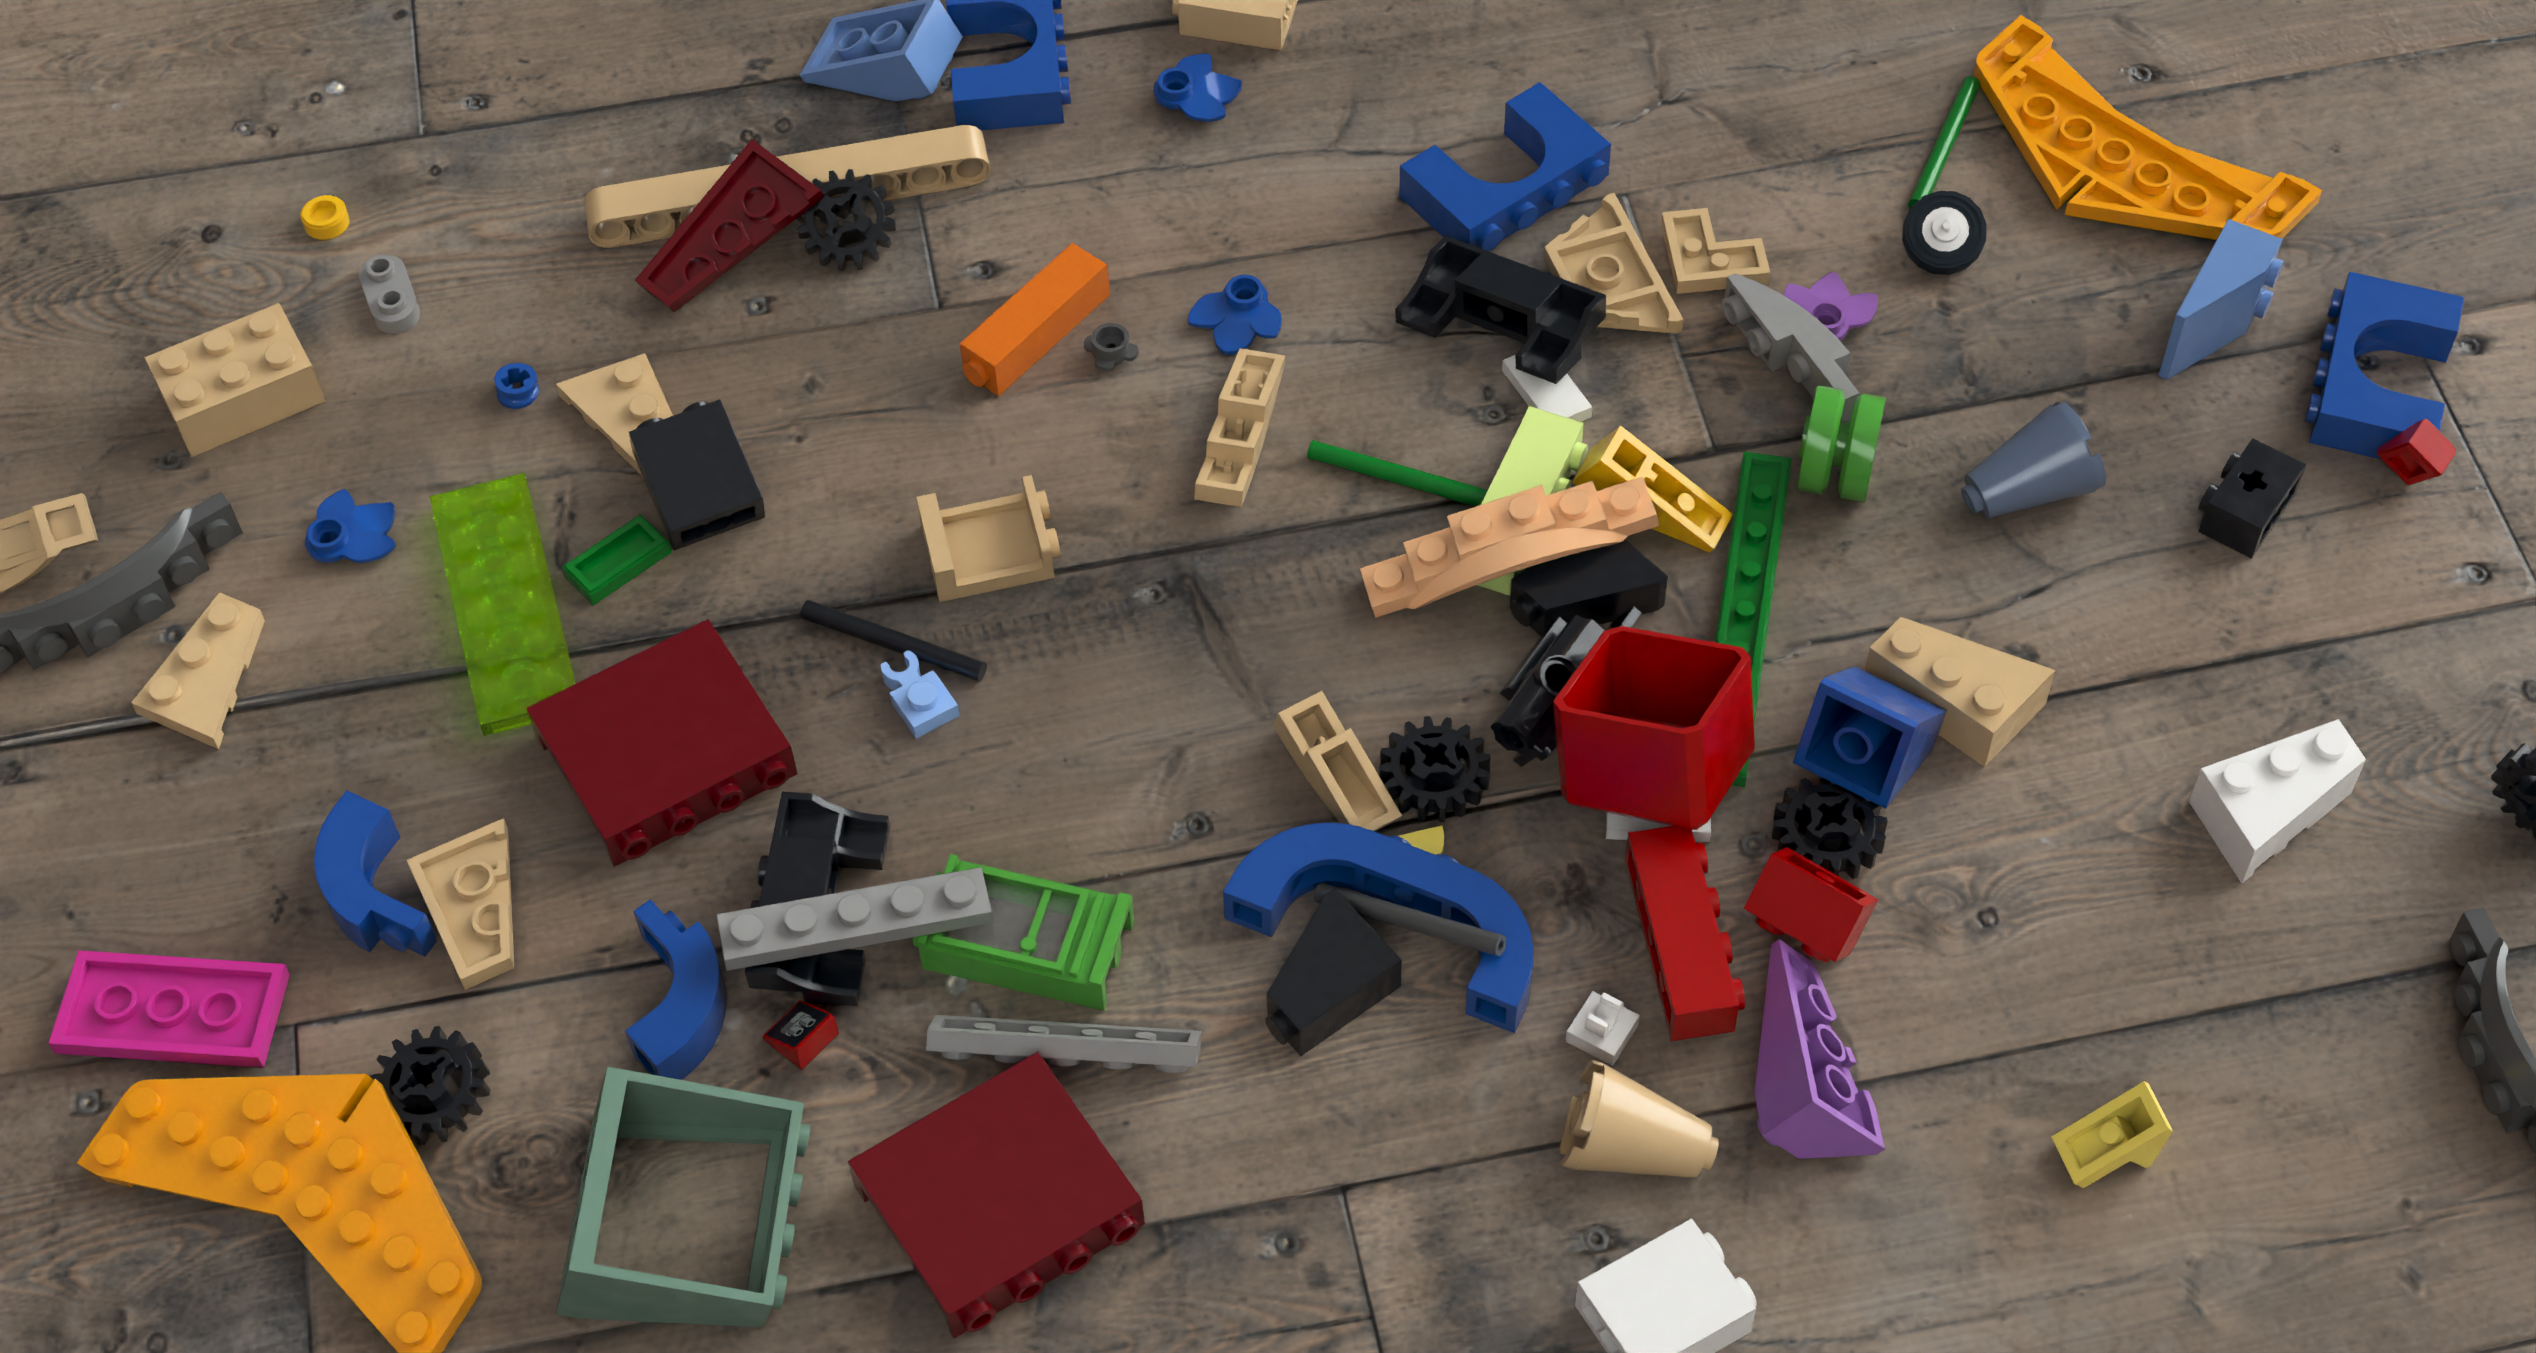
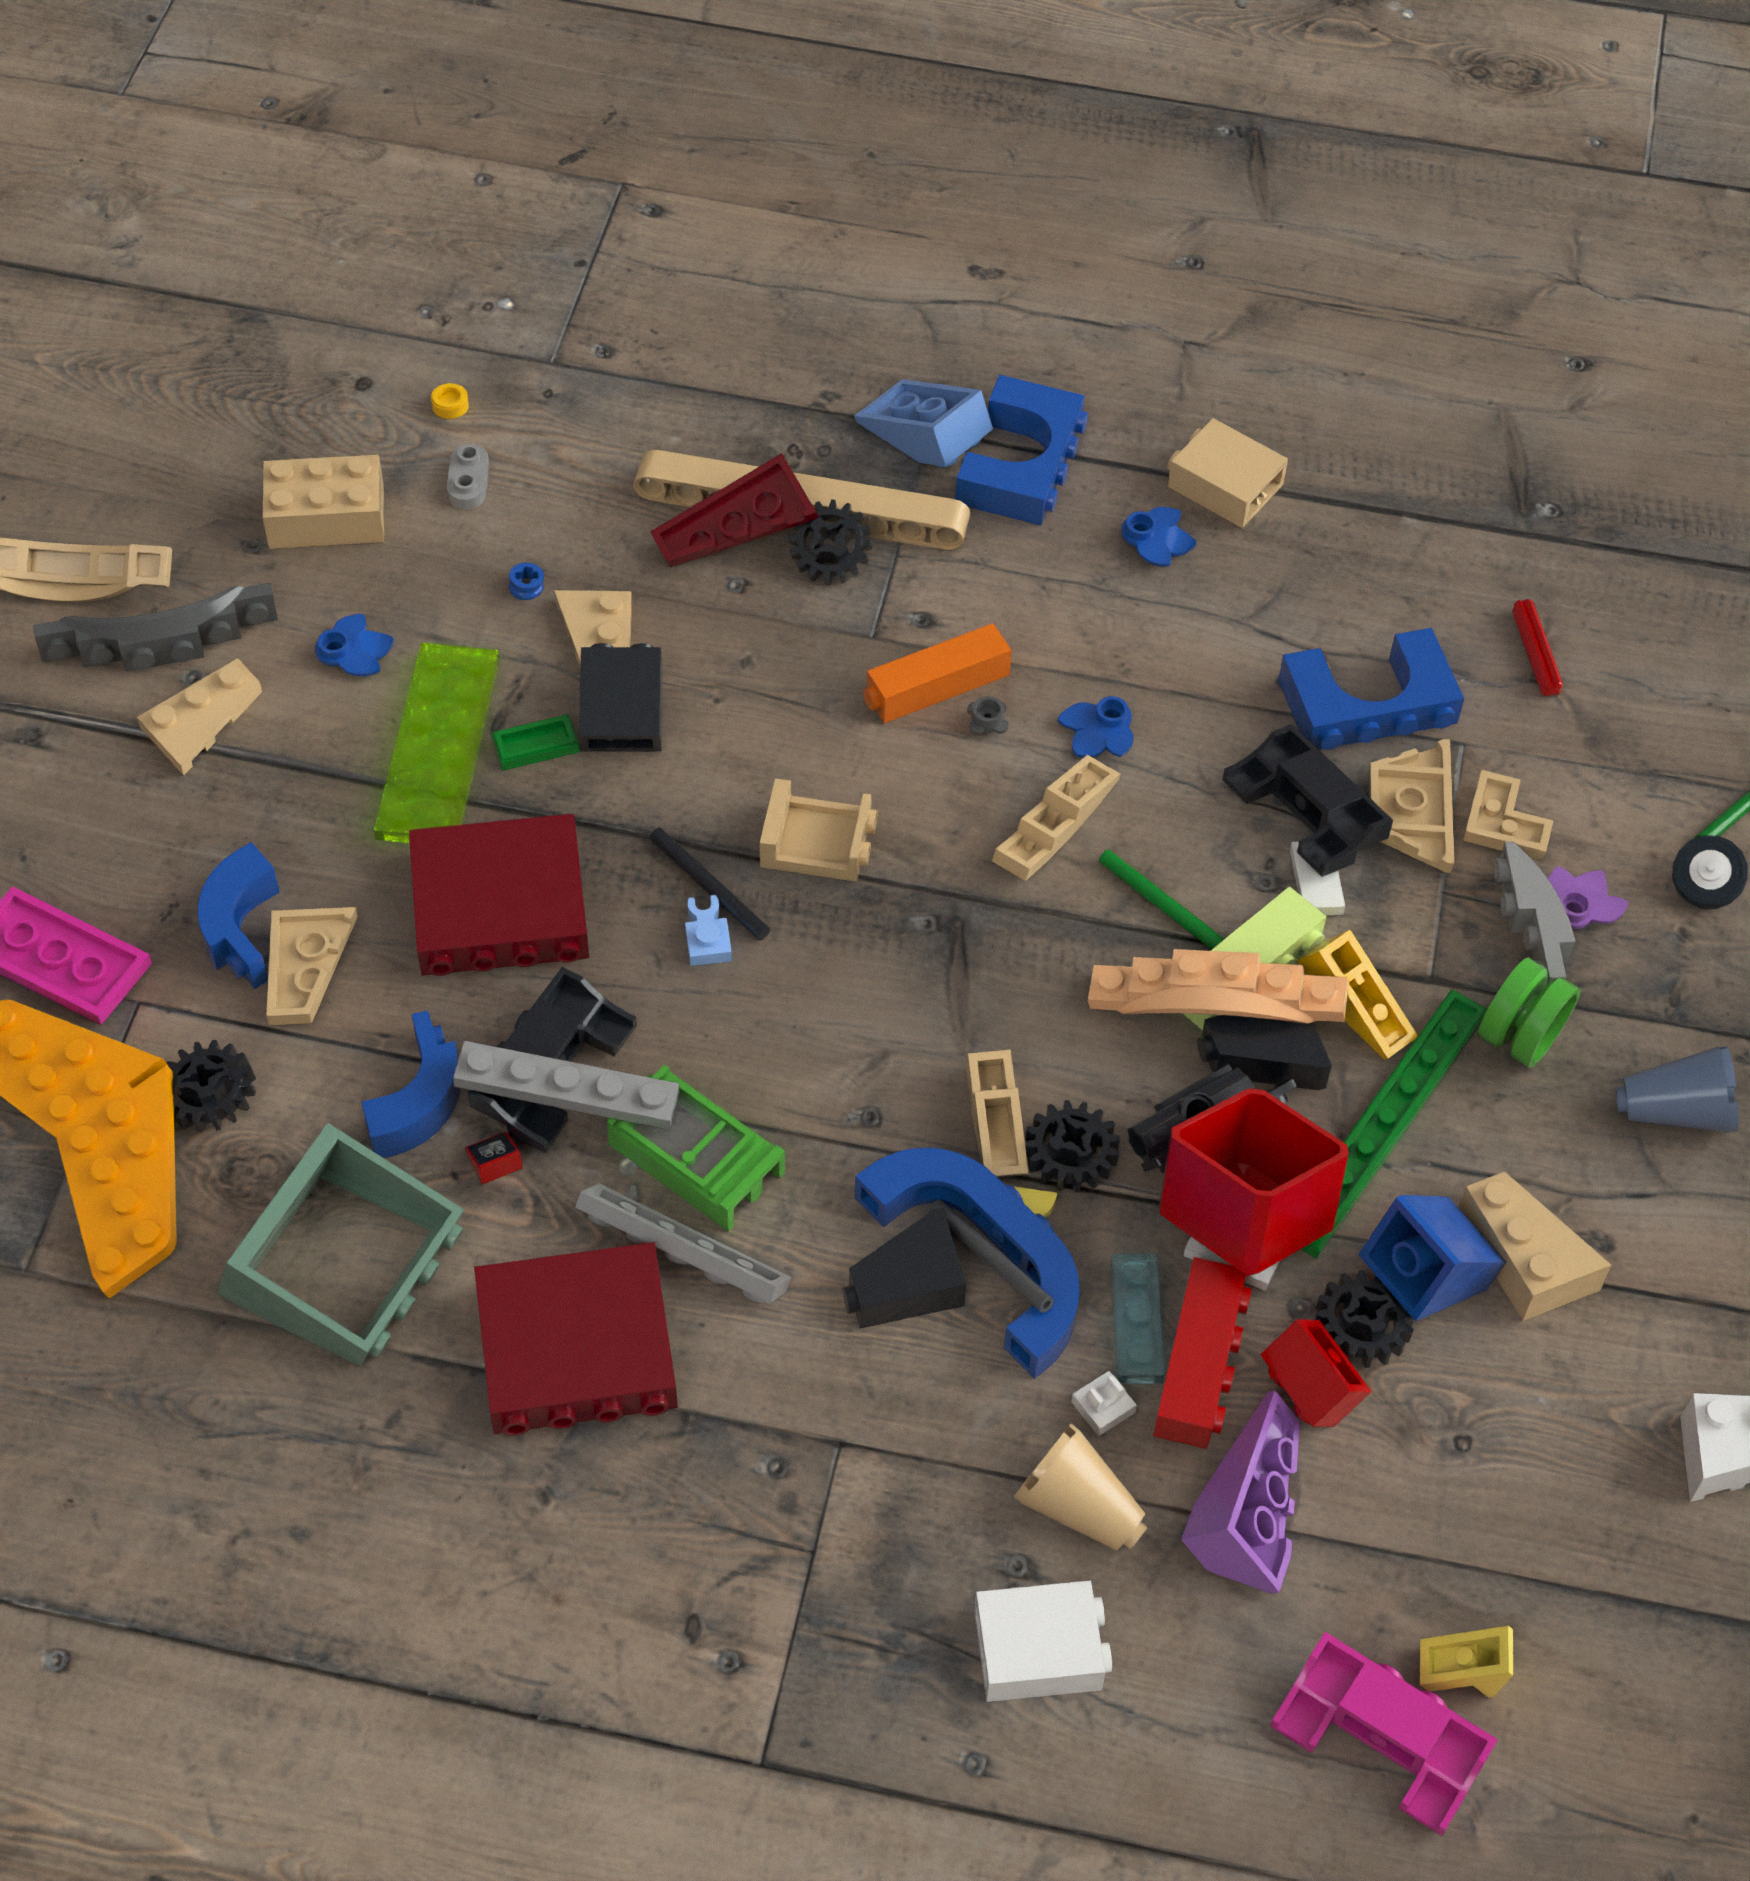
camera: 20 degrees right, 0 degrees up
(1593, 924) = (1137, 1319): none -> clear light blue plate
(1653, 66) = (1537, 647): none -> red axle
(2068, 1231) = (1392, 1719): none -> dark pink bracket

